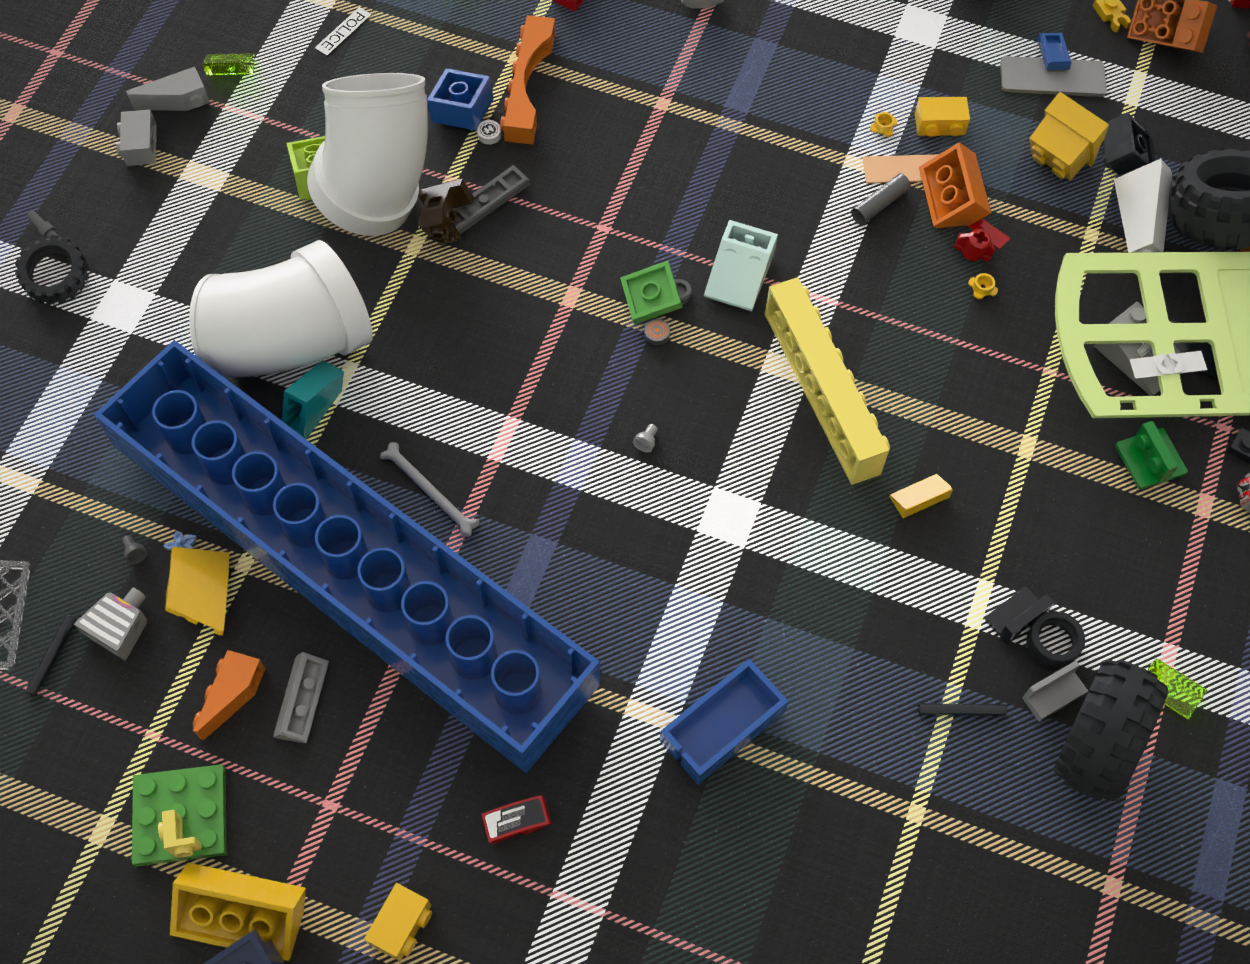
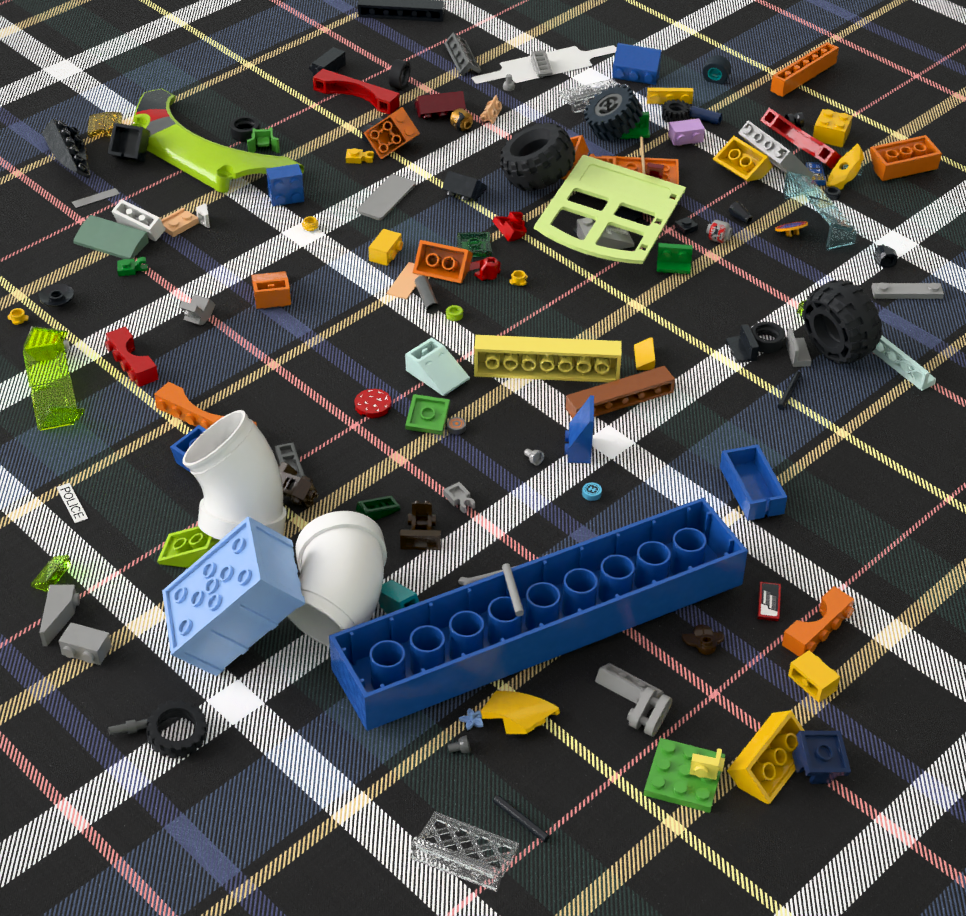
camera: 65 degrees left, 20 degrees down
(115, 622) = (519, 768): light grey torso -> none
(196, 224) = (232, 596): none -> light blue container
(232, 688) = (606, 716): orange slope -> none
(245, 725) = (646, 699): none -> light grey brick
(320, 497) = (512, 589): none -> light grey bar
(417, 756) = (704, 639): none -> dark brown plate
(460, 293) = (377, 507): none -> dark green slope
(464, 354) = (421, 519): none -> dark brown tile
(528, 383) = (459, 495): none -> light grey plate
(536, 911) = (805, 636): none -> orange arch
(618, 529) = (592, 491): none -> medium azure tile
(648, 229) = (373, 403): none -> red tile
(697, 479) = (580, 434): none -> blue slope
(784, 37) = (271, 290): none -> orange slope
(819, 493) = (623, 392): none -> dark orange brick
(868, 243) = (454, 313): none -> lime tile
(884, 124) = (370, 273): yellow plate -> none
(937, 22) = (310, 223): none -> yellow plate
(1021, 209) = (477, 242): none -> clear green tile
(1054, 51) = (371, 187): blue tile -> none
(1067, 137) = (447, 199): yellow piece -> none
(1090, 233) = (511, 226): none -> red slope
(1120, 856) = (904, 364): none -> light aqua fence
(1144, 206) = (513, 195): white slope -> none
(1168, 364) = (627, 223): white piece -> none

